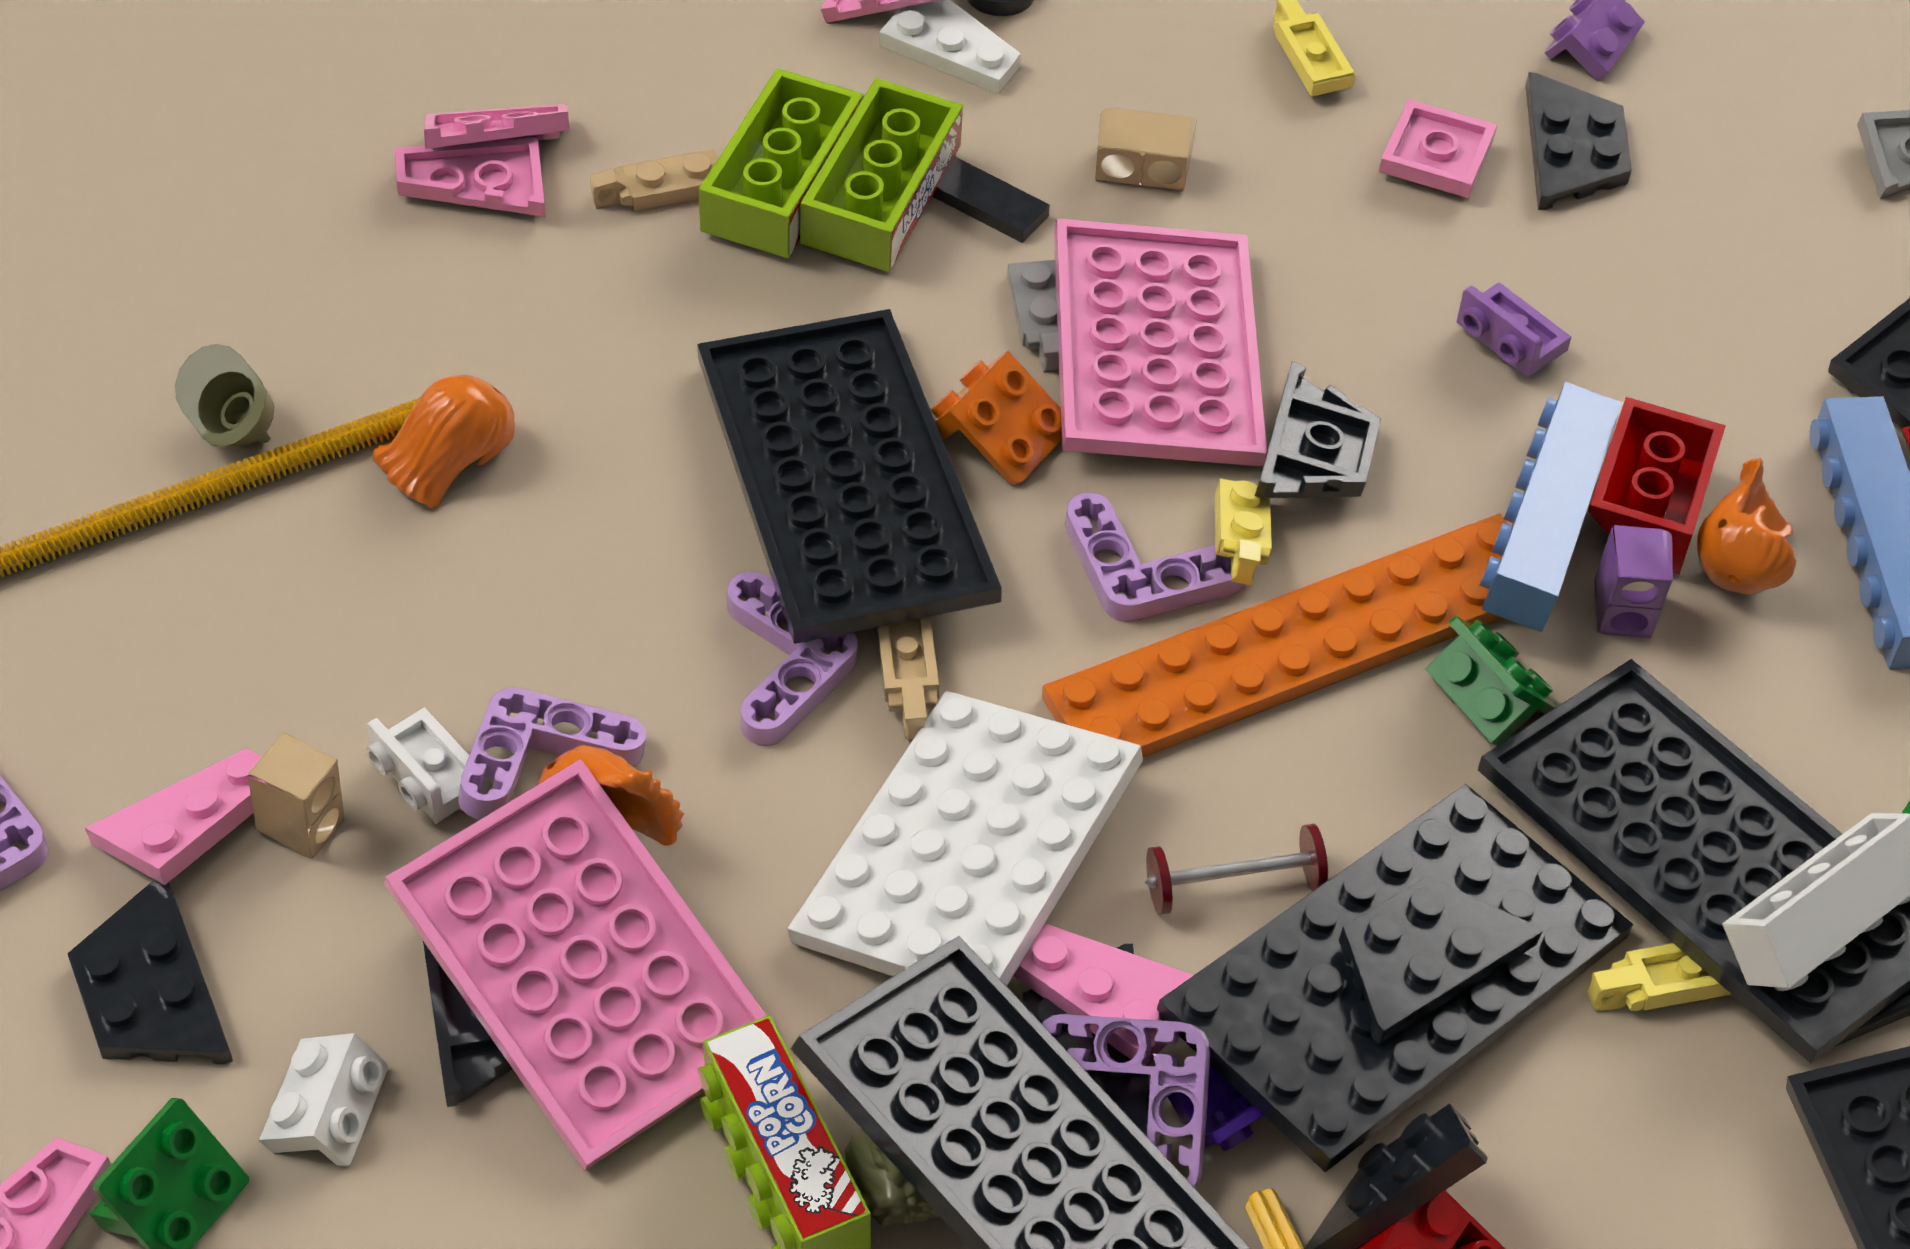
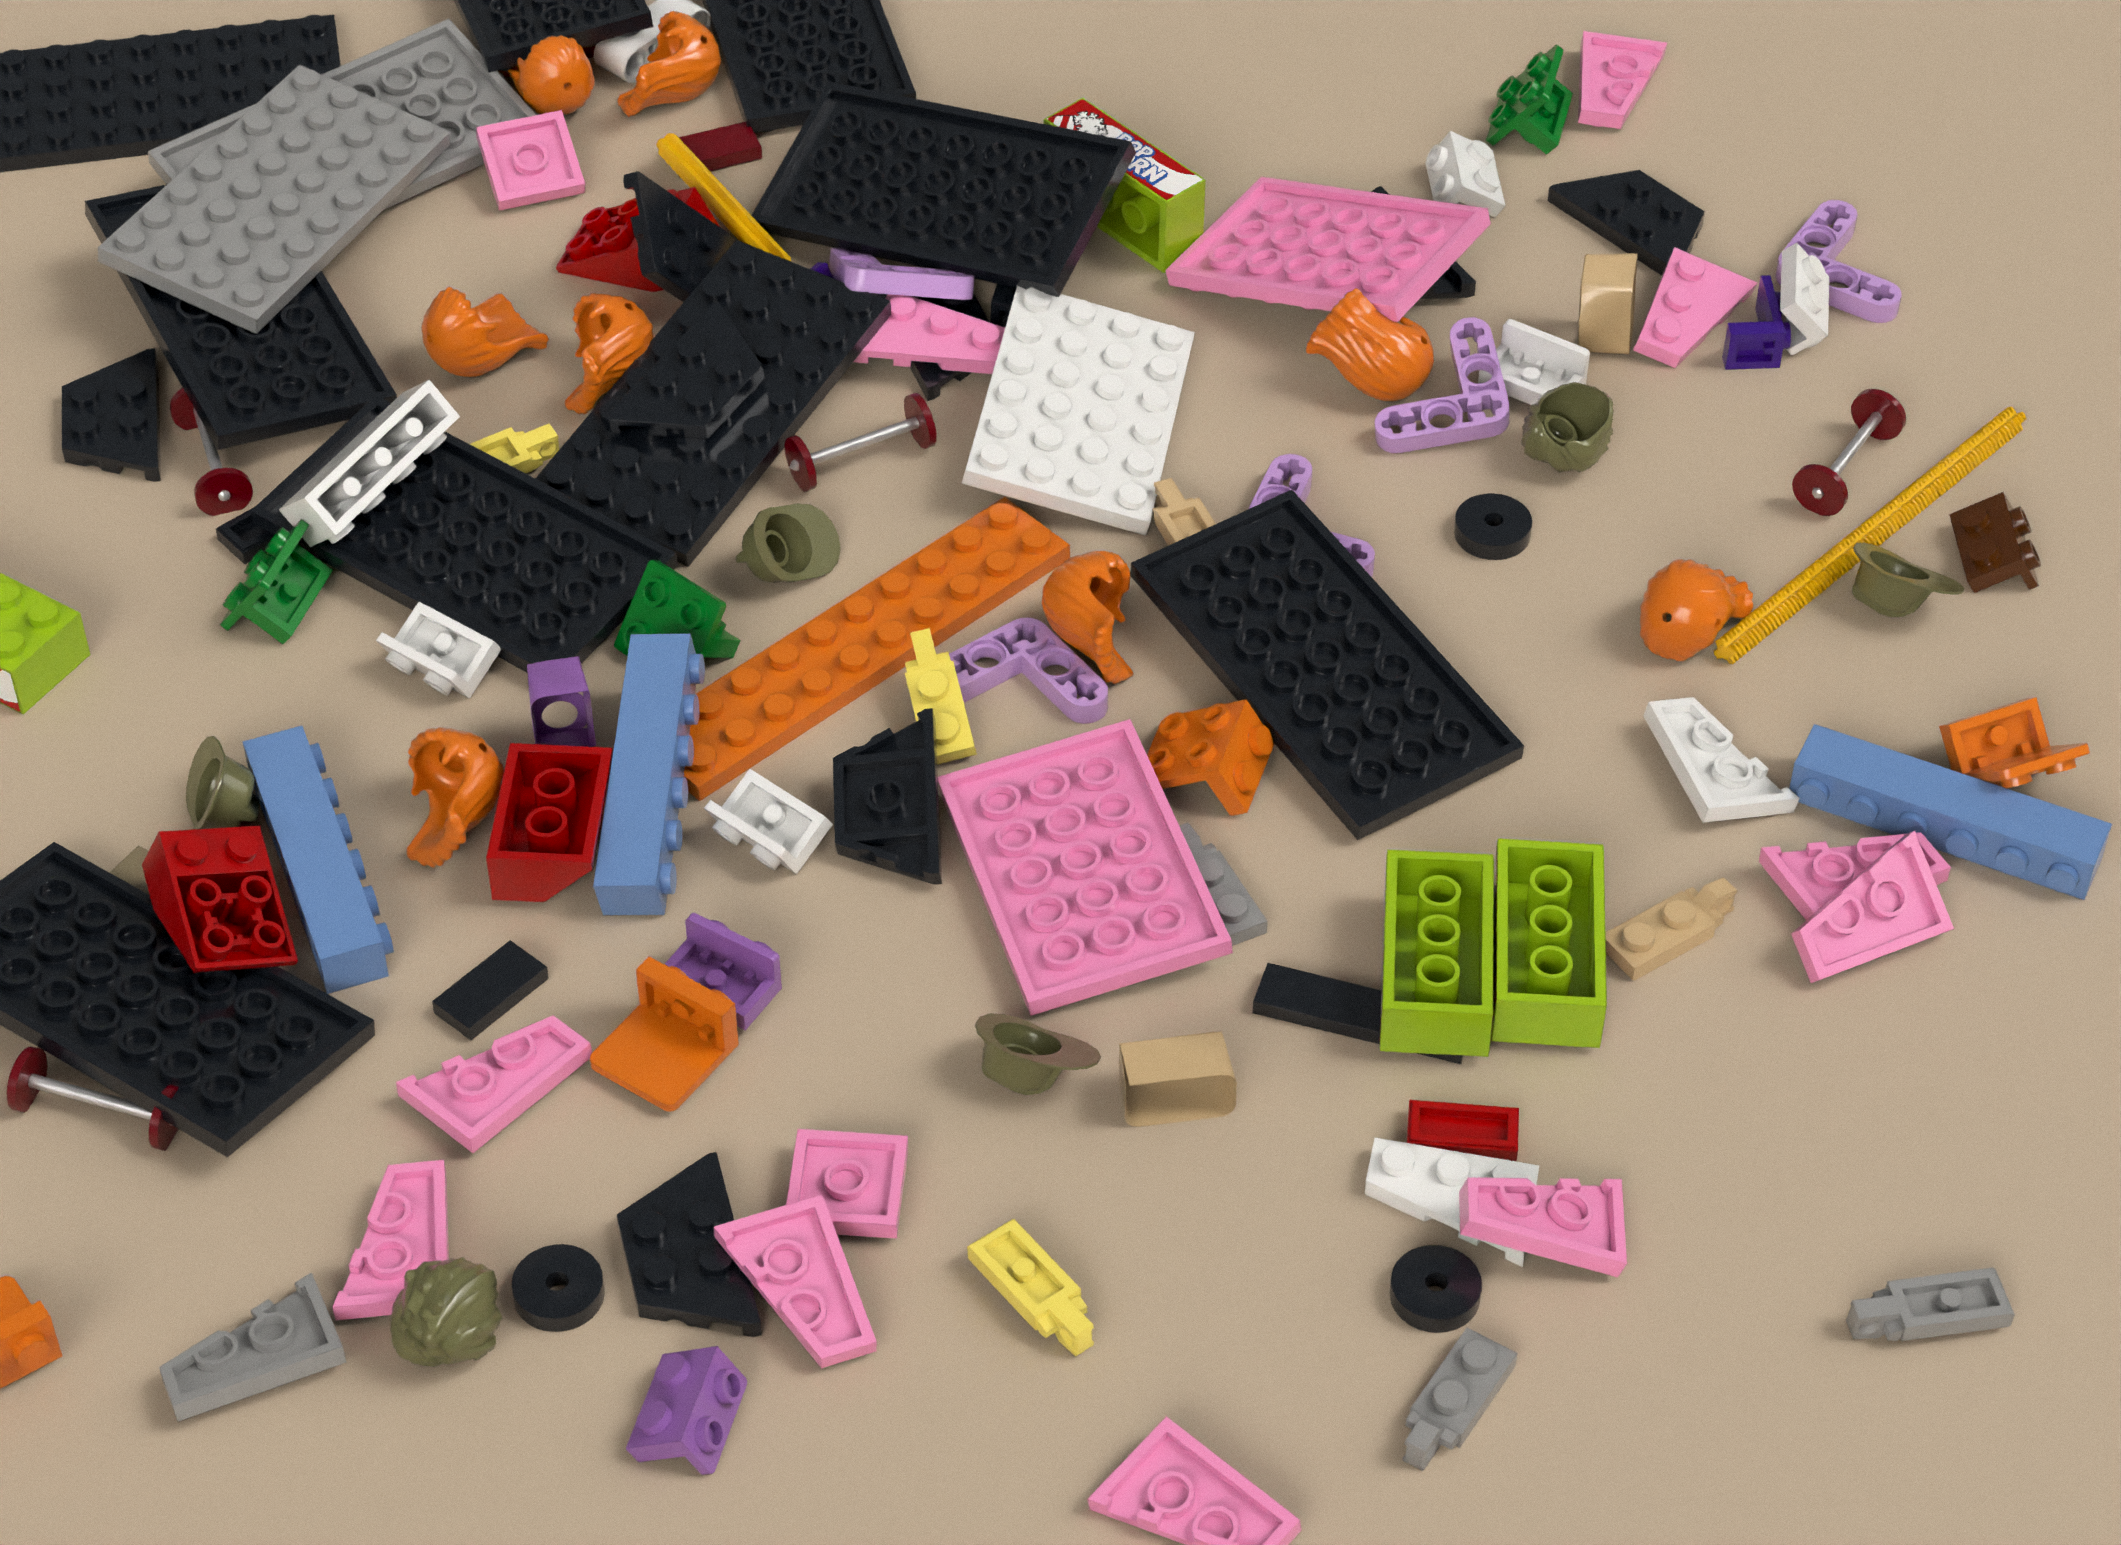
camera: 165 degrees right, 5 degrees down
(67, 760) = (1804, 298): none -> white bracket
(100, 436) = (1994, 543): none -> reddish brown bracket
(139, 729) = (1761, 342): none -> dark purple bracket
(225, 530) = (1821, 487): none -> dark red axle
(264, 207) = (2007, 745): none -> orange bracket
(358, 199) = (1951, 810): none -> medium blue brick
(444, 657) = (1569, 427): none -> olive hair
(531, 296) = (1710, 767): none -> white wing
(586, 622) = (1493, 526): none -> black piece
(924, 75) = (1464, 1128): none -> red tile
(1065, 571) = (1083, 603): none -> orange piece
(1255, 180) = (1028, 1056): none -> olive piece
(1360, 751) = (790, 544): none -> olive piece
(1444, 451) = (771, 821): none -> white bracket
(1489, 82) = (803, 1276): none -> bright pink wing
(1508, 1067) = (611, 338): none -> orange piece
(1568, 285) = (669, 1038): none -> orange bracket
(1674, 1155) = (475, 338): none -> orange piece
(1683, 142) = (561, 1308): none -> black piece
(1720, 382) = (490, 990): none -> black tile
(1723, 293) = (490, 1090): none -> bright pink wing
(1758, 718) = (440, 649): none -> white bracket
(1779, 103) = (446, 1313): none -> olive hair
(1809, 188) = (403, 1231): none -> bright pink wing

